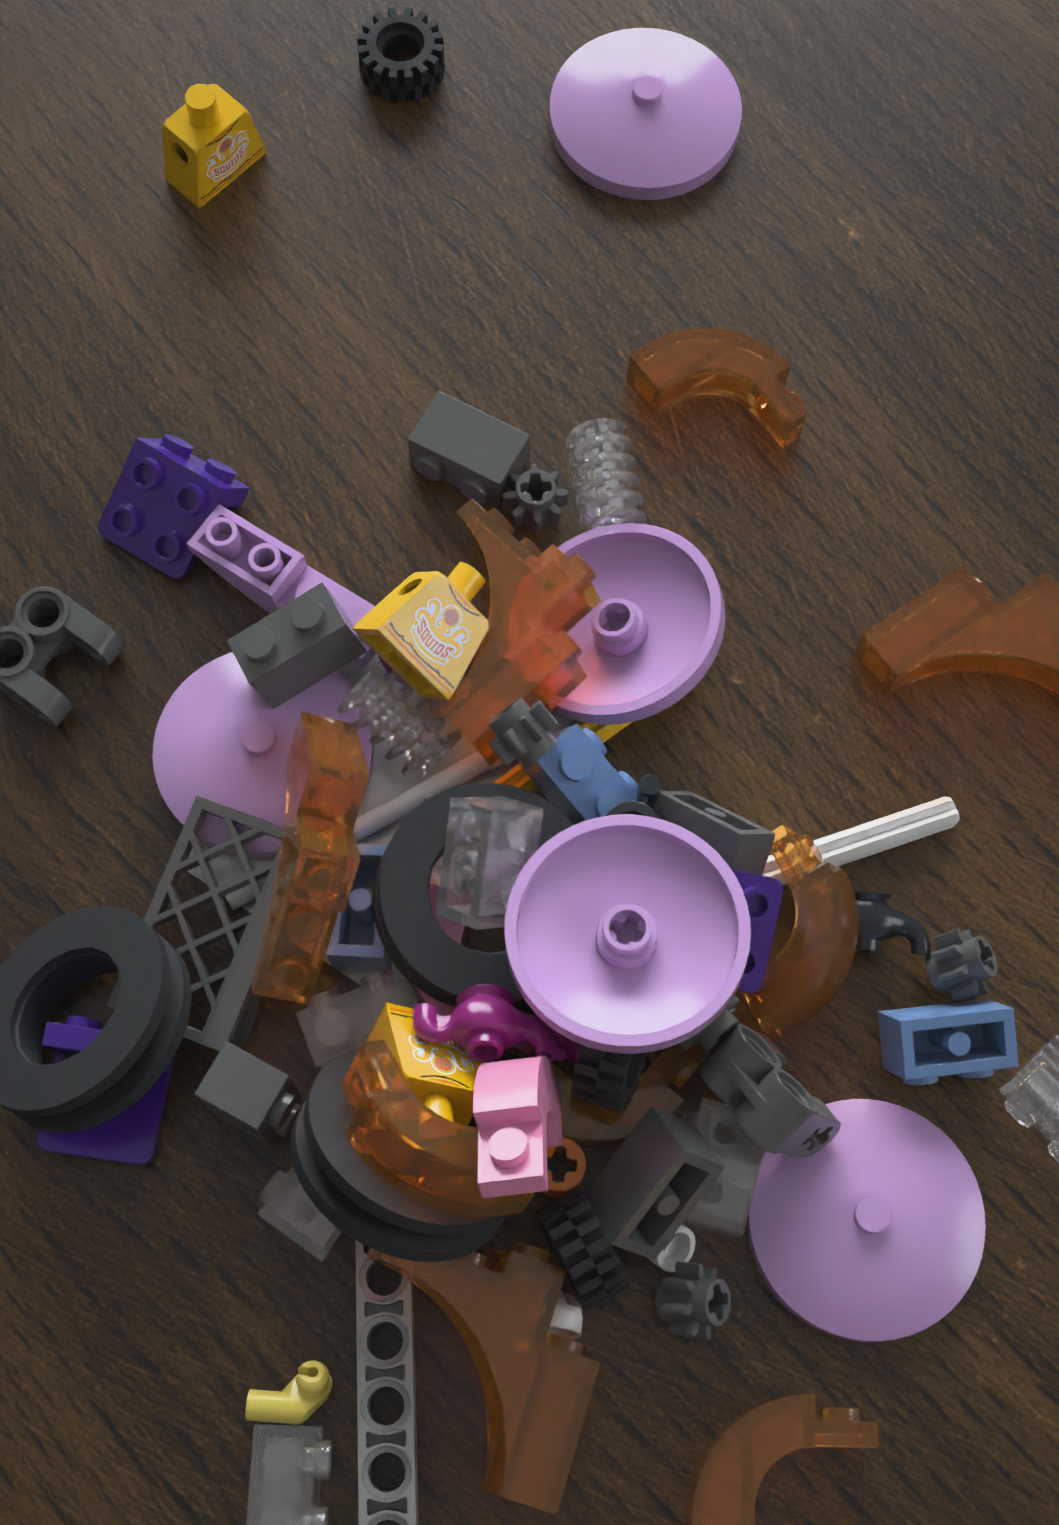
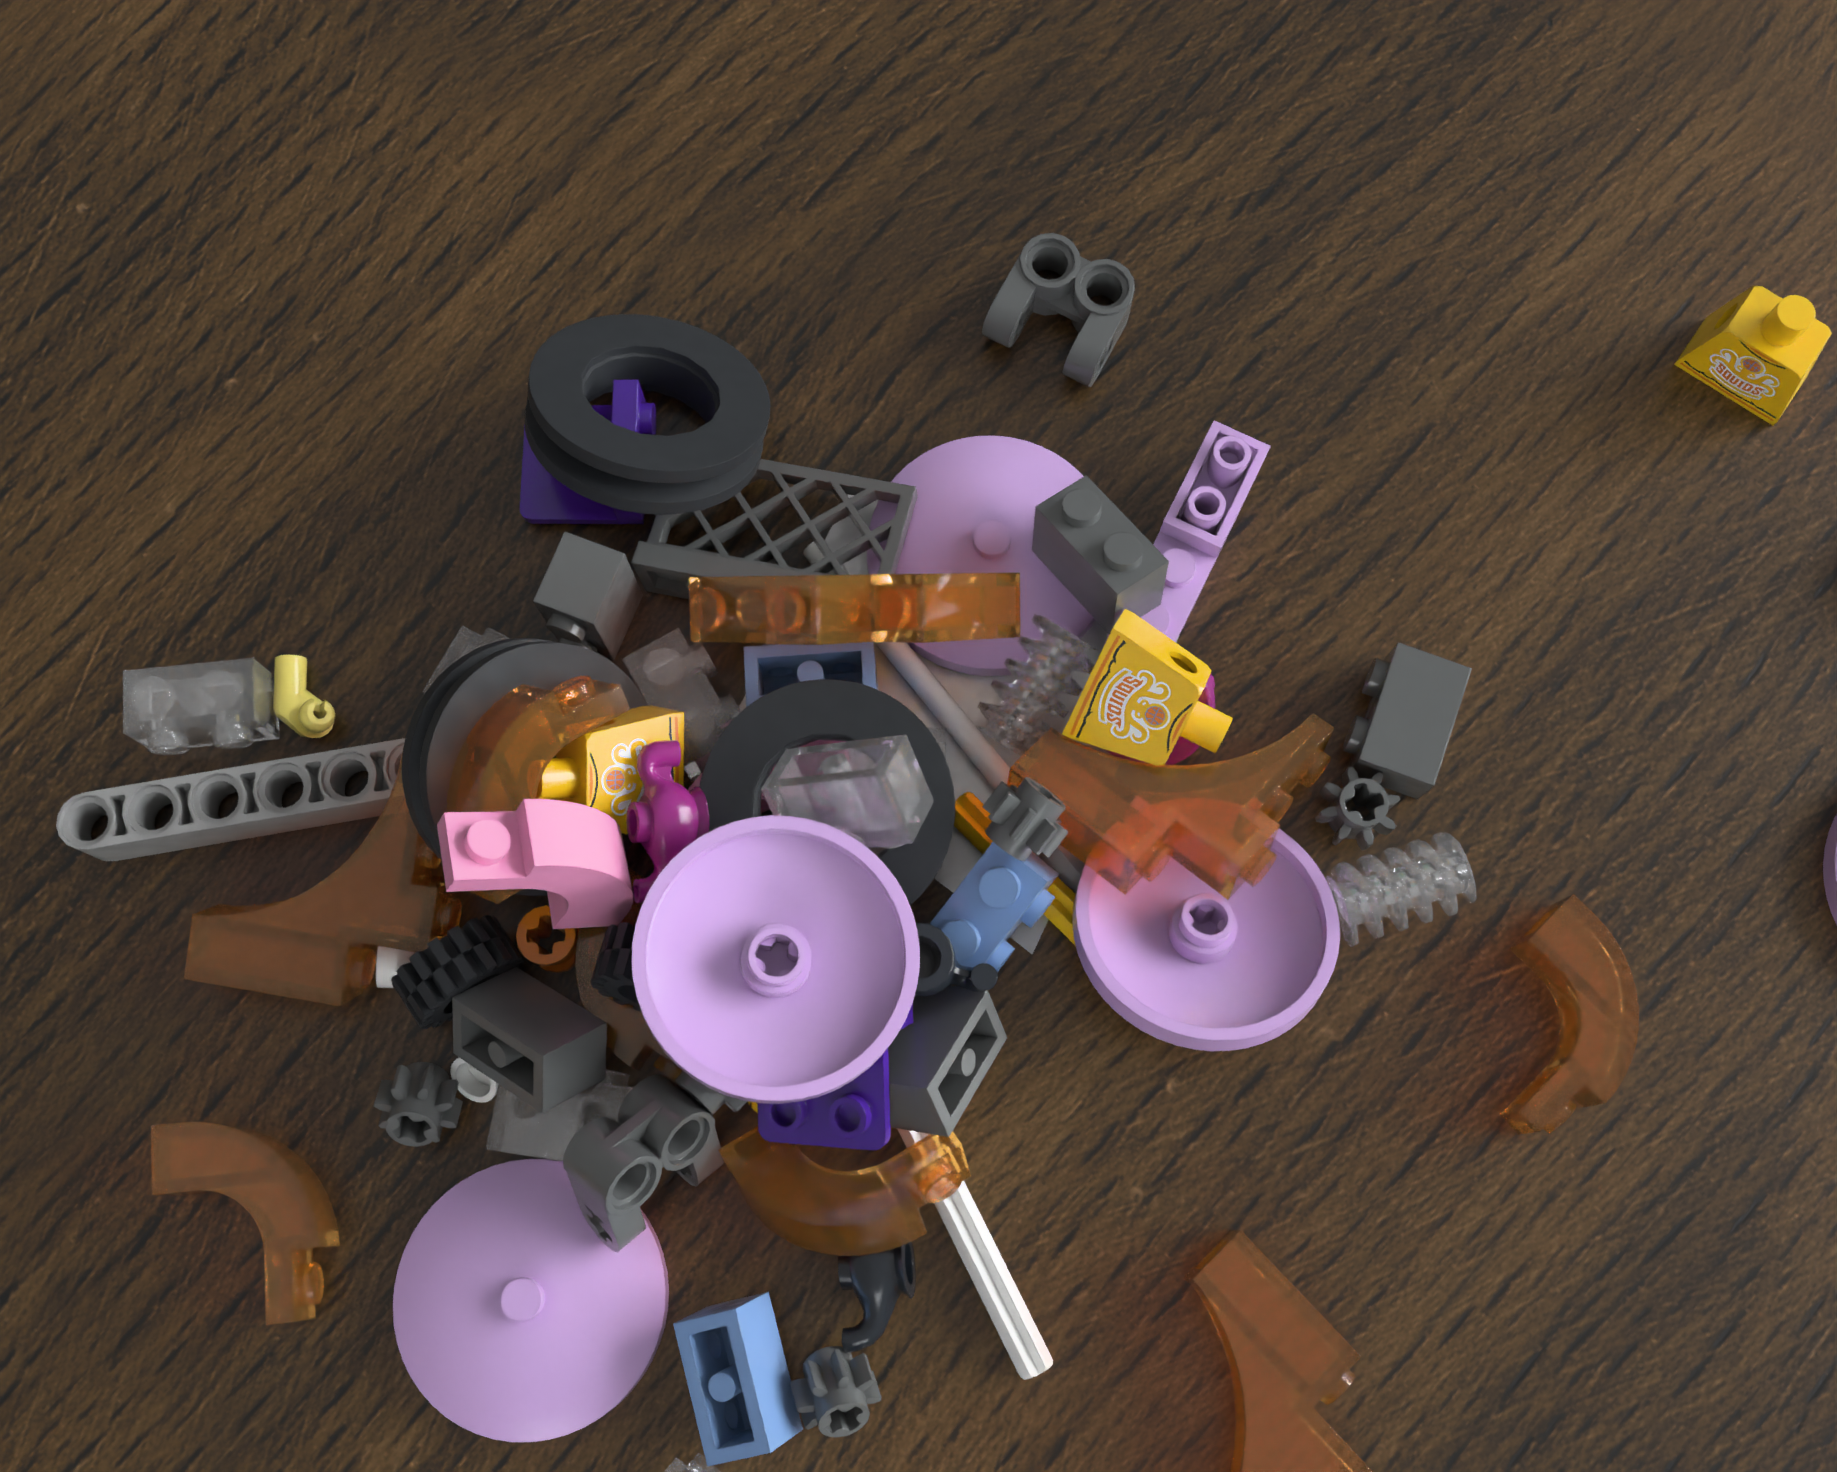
camera: 85 degrees right, 5 degrees up
(165, 500) = (1277, 392): dark purple bracket -> none

